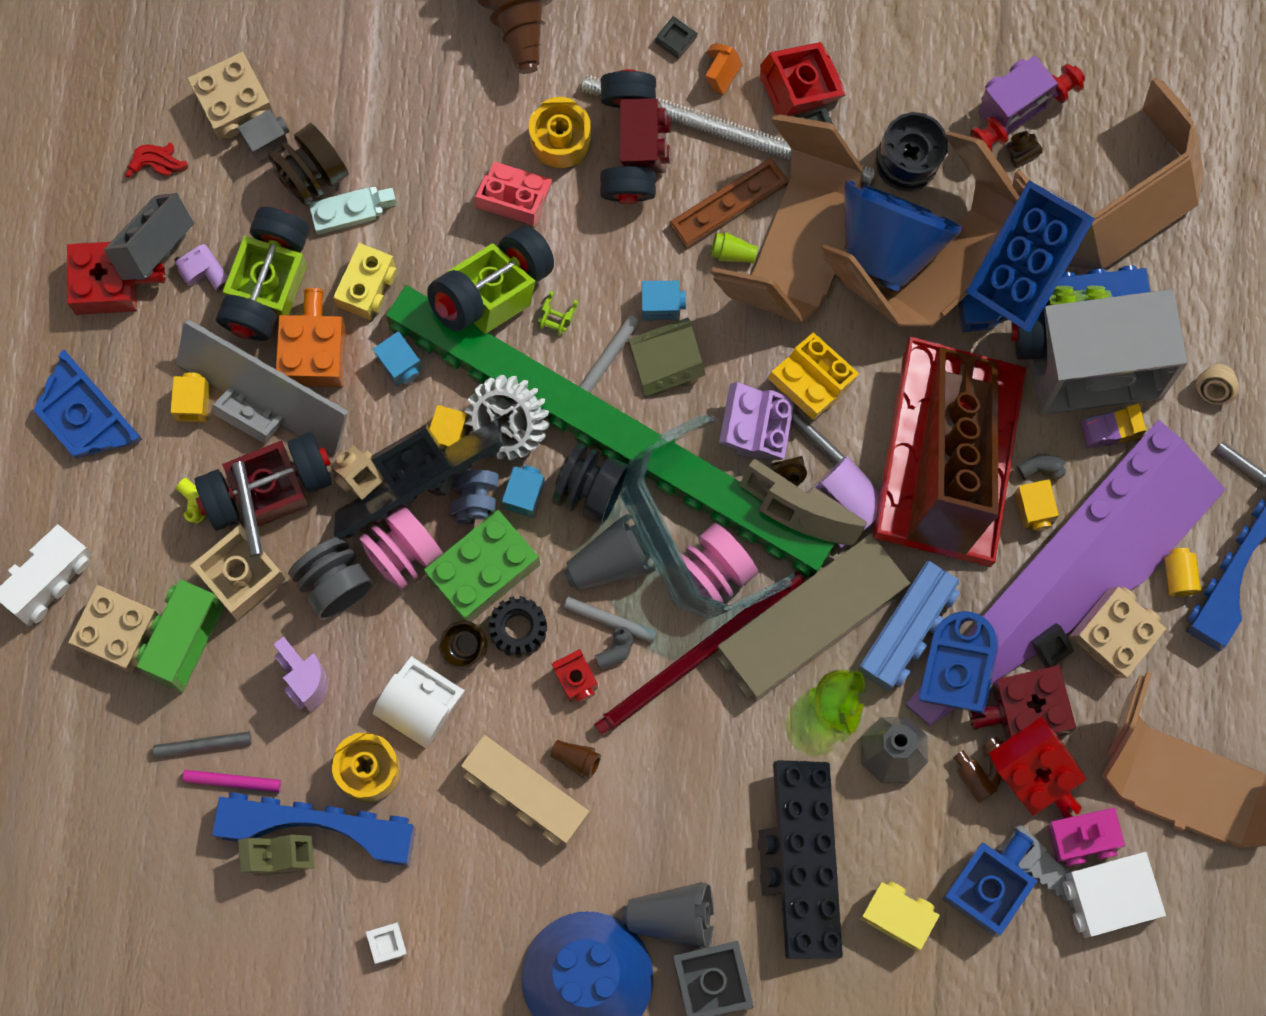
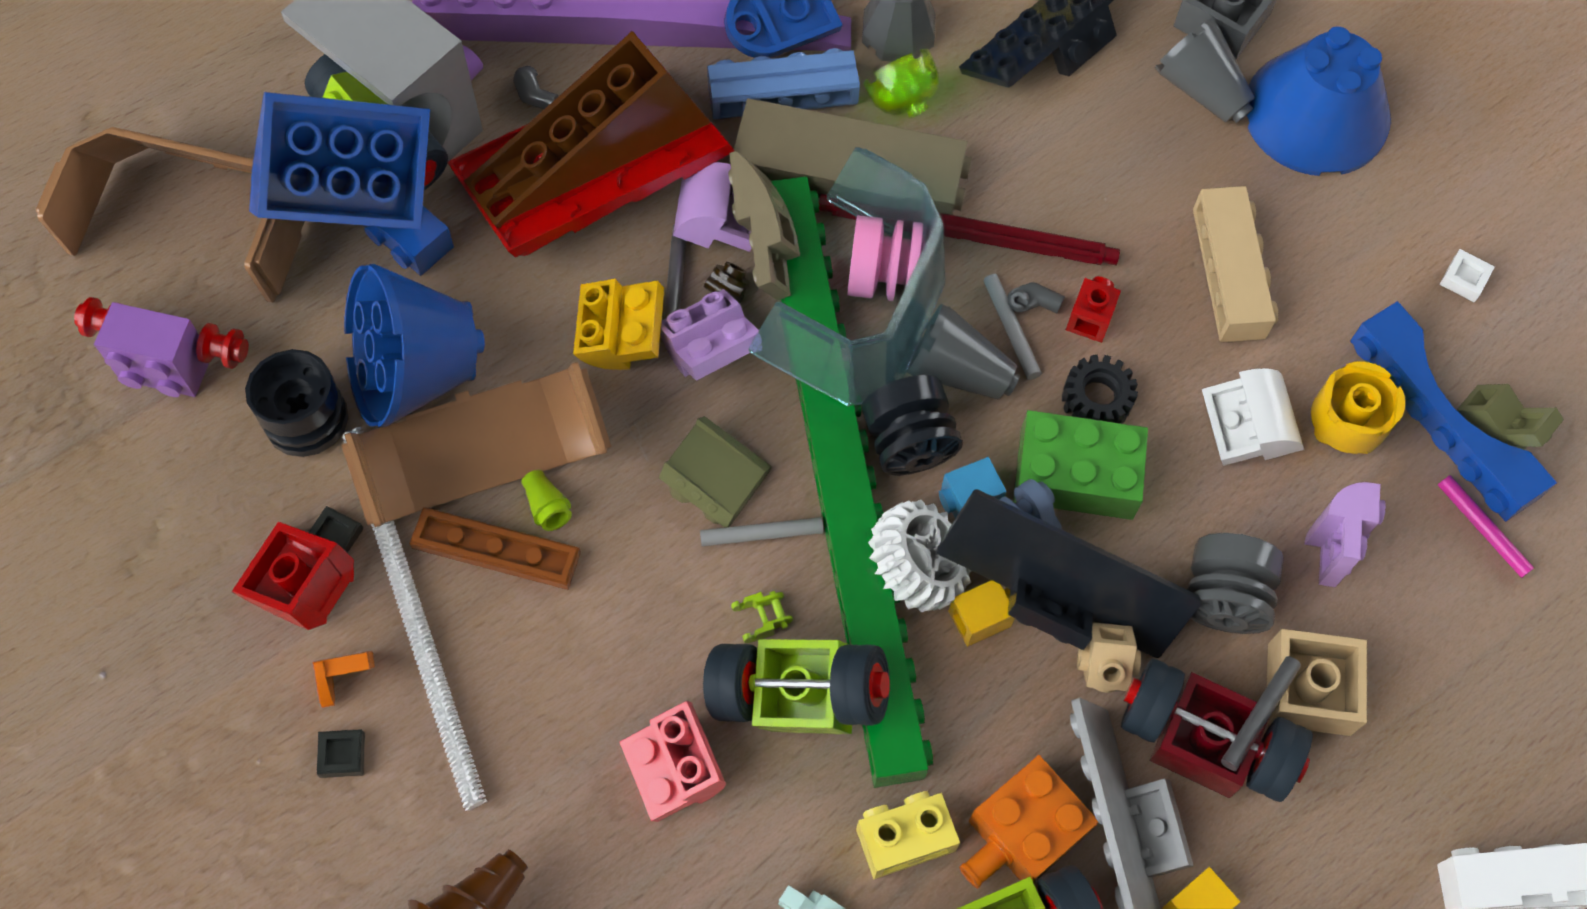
camera: 135 degrees left, 10 degrees down
(113, 629) = (1487, 753): tan brick -> none
(179, 635) = (1436, 676): bright green piece -> none
(190, 492) = (1285, 811): neon yellow arm -> none
(202, 744) = (1486, 582): flat silver bar -> none
(398, 359) = (957, 725): dark azure brick -> none
(400, 547) = (1151, 544): bright pink wheel -> none
(463, 645) = (1170, 418): dark brown hair -> none
(563, 149) = (570, 746): yellow brick -> none
(577, 758) = (1159, 251): reddish brown cone -> none
(641, 136) = (499, 668): brick -> none
(662, 300) = (661, 521): dark azure brick -> none
(950, 273) = (312, 268): medium nougat piece -> none
(1023, 148) = (201, 315): dark brown plate -> none
(1036, 505) = (572, 60): yellow brick -> none

